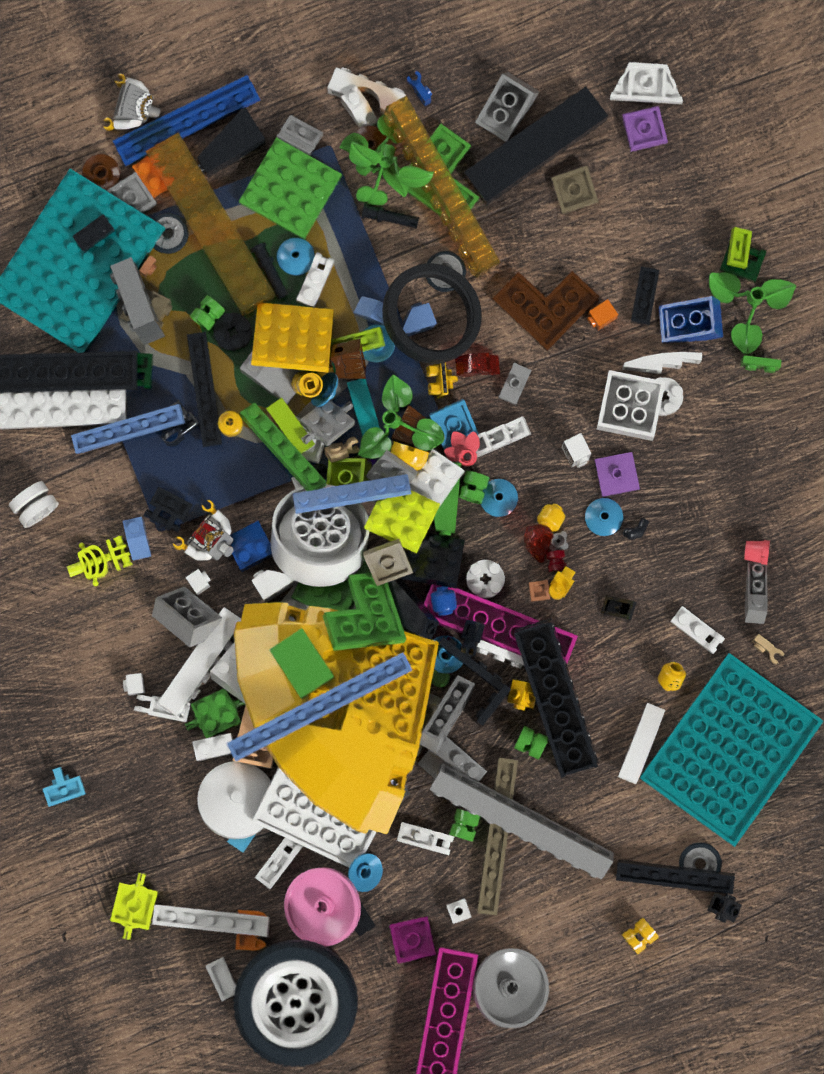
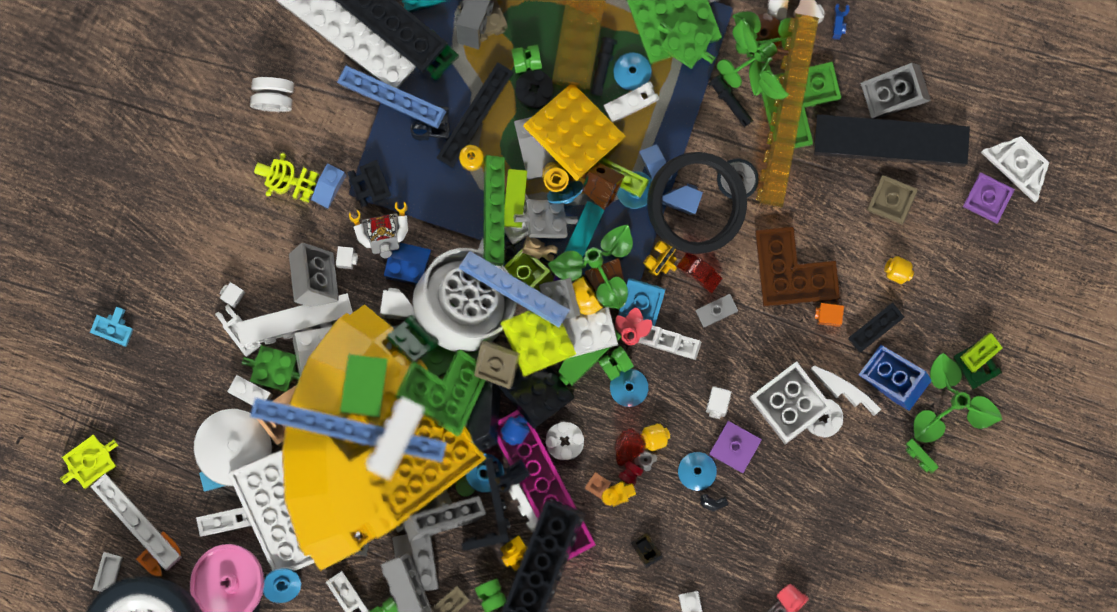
camera: 50 degrees right, 0 degrees up
(305, 603) = (408, 343): none -> dark green plate
(319, 199) = (686, 42): none -> bright green plate
(363, 681) = (395, 439): none -> white brick
(625, 238) = (899, 270): none -> yellow head

